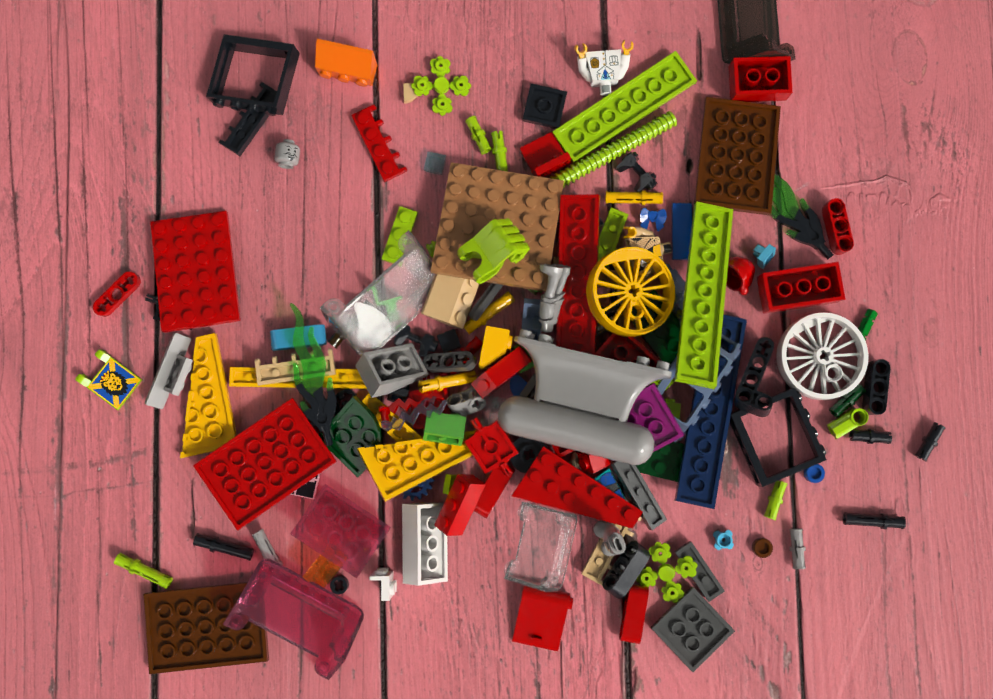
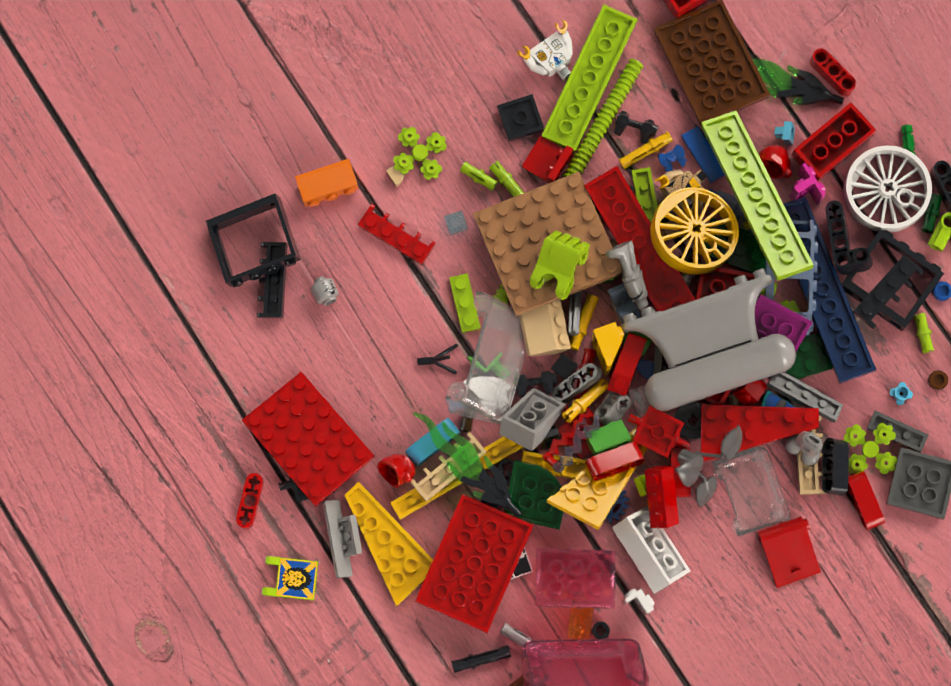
camera: 25 degrees left, 5 degrees down
(252, 342) = (396, 469): none -> red piece
(347, 269) = (434, 360): none -> black plant
(437, 450) = (614, 461): none -> beam
(493, 502) = (693, 462): none -> dark grey plant
(756, 311) = (808, 184): none -> dark pink bracket
(766, 444) = (886, 290): none -> black hinge

